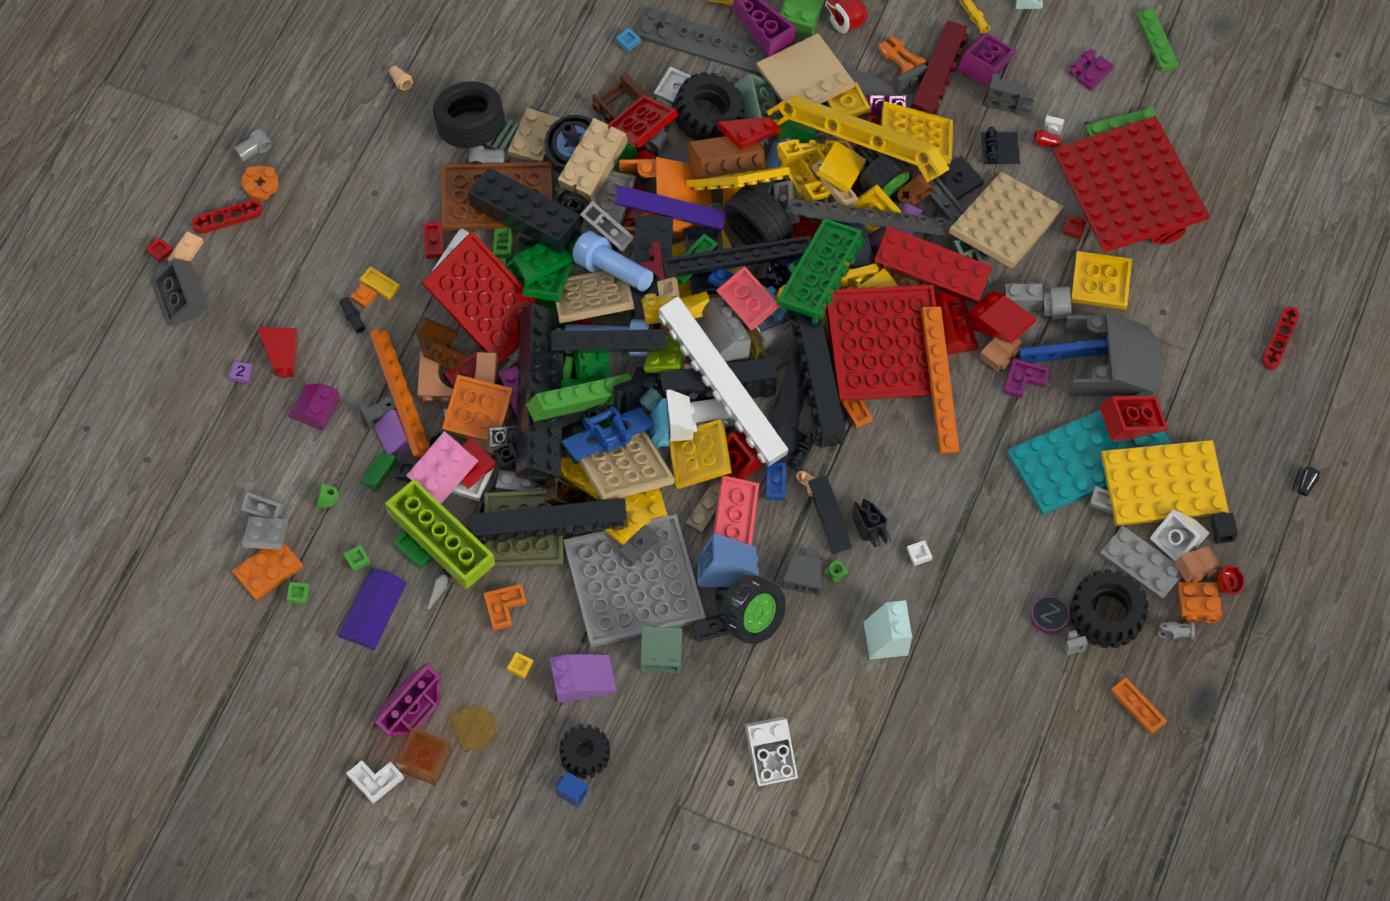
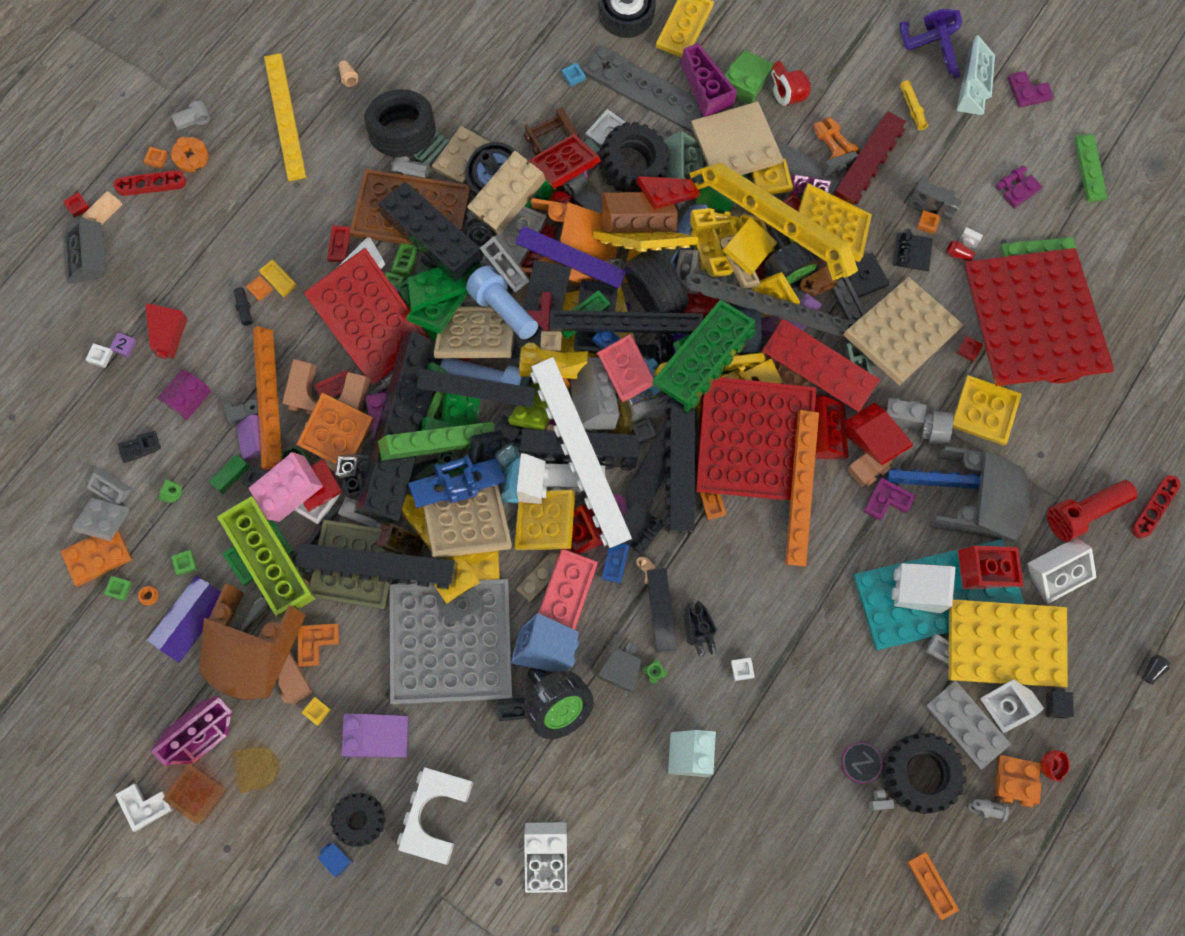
camera: 10 degrees right, 10 degrees up
(221, 386) = (99, 355): none -> white plate
(226, 191) = (155, 157): none -> orange tile
(284, 463) = (139, 447): none -> black slope
(326, 590) = (144, 591): none -> orange plate
(347, 130) = (285, 117): none -> yellow plate
(437, 627) = (238, 661): none -> dark orange windscreen
(441, 349) = (319, 344): reddish brown panel -> none
(491, 643) = (293, 682): none -> nougat slope
(651, 707) = (414, 838): none -> white arch
(661, 649) = (457, 729): sand green slope -> none
(985, 58) = (917, 157): magenta slope -> none
(1009, 117) = (928, 222): none -> orange plate
(1073, 445) = (924, 587): none -> white slope
(1198, 564) = (1025, 741): nougat brick -> none
(1201, 360) = (1072, 518): none -> red piece
(1203, 409) = (1062, 569): none -> white slope

